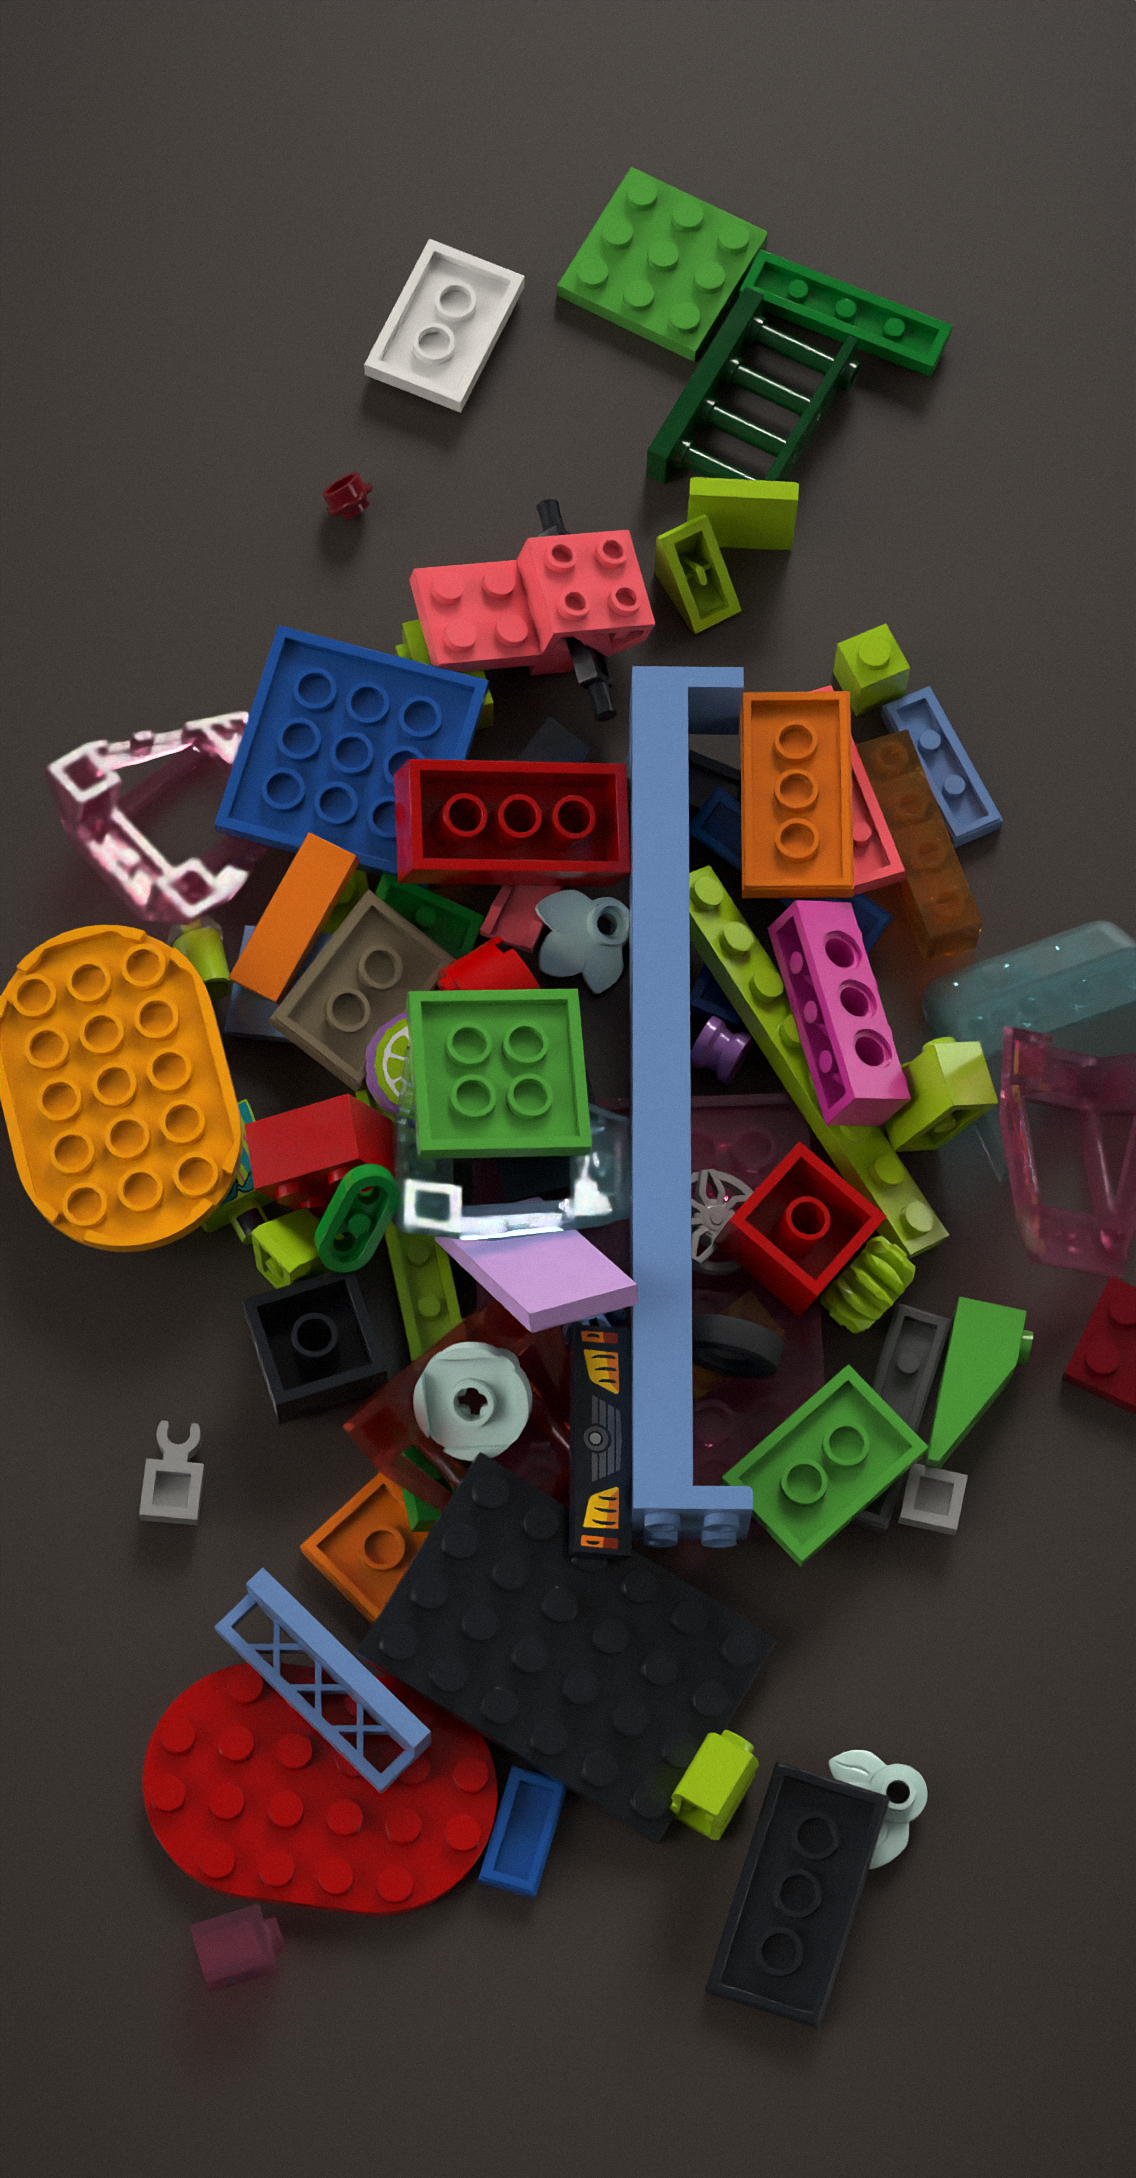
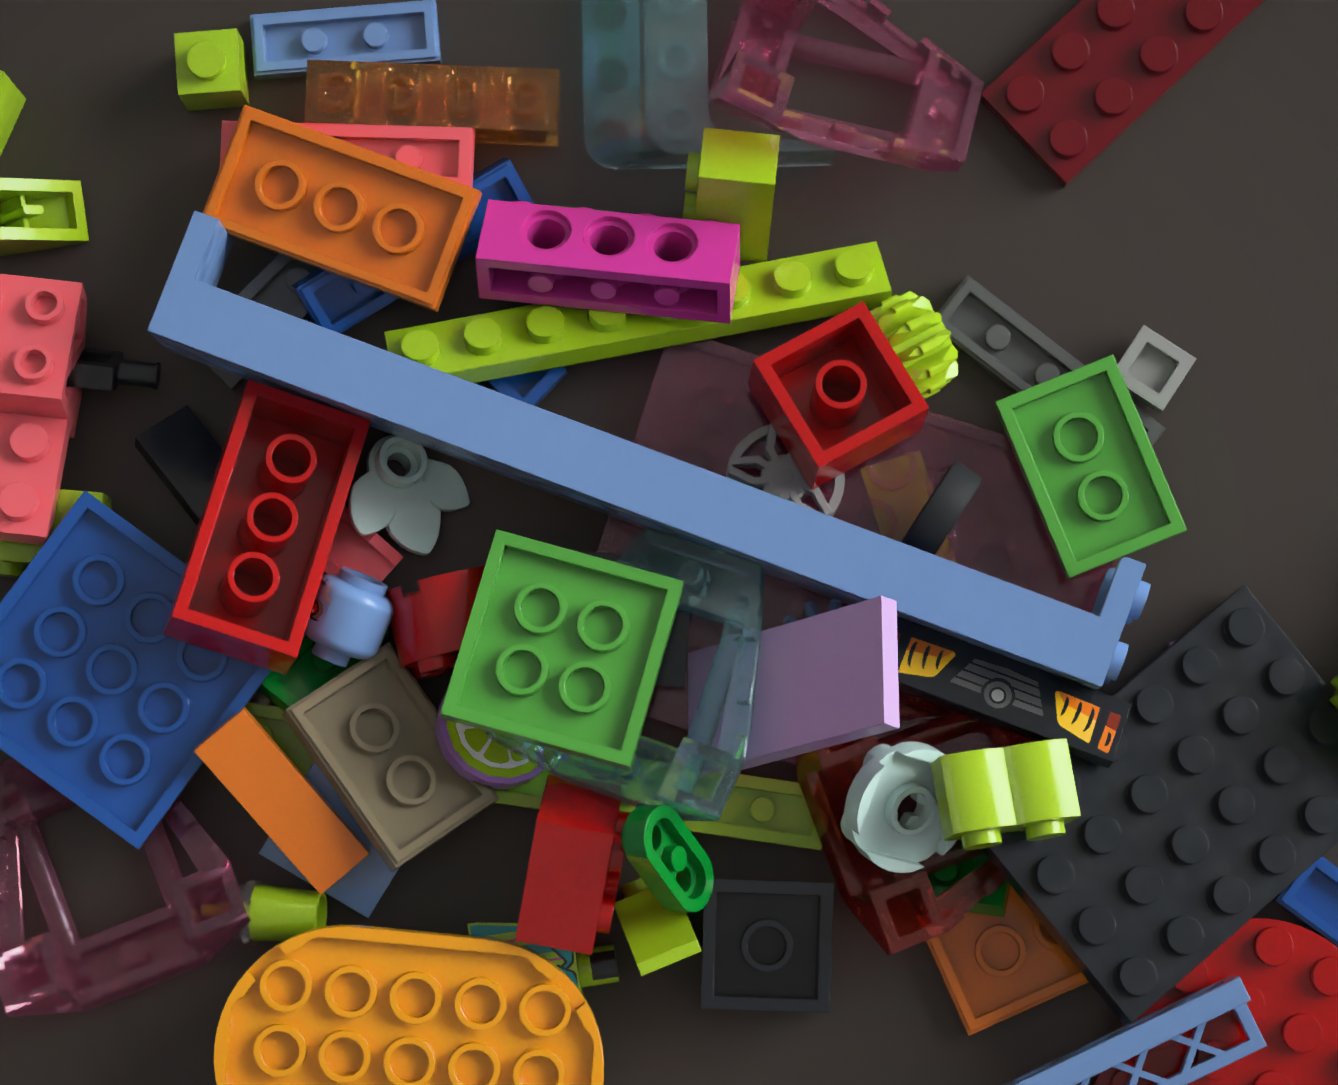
camera: 65 degrees left, 15 degrees up
(463, 913) = (349, 617): none -> medium blue head
(514, 1464) = (1006, 791): none -> lime brick
(720, 1050) = (588, 396): medium lavender wheel -> none
(977, 1367) = (1032, 271): bright green slope -> none

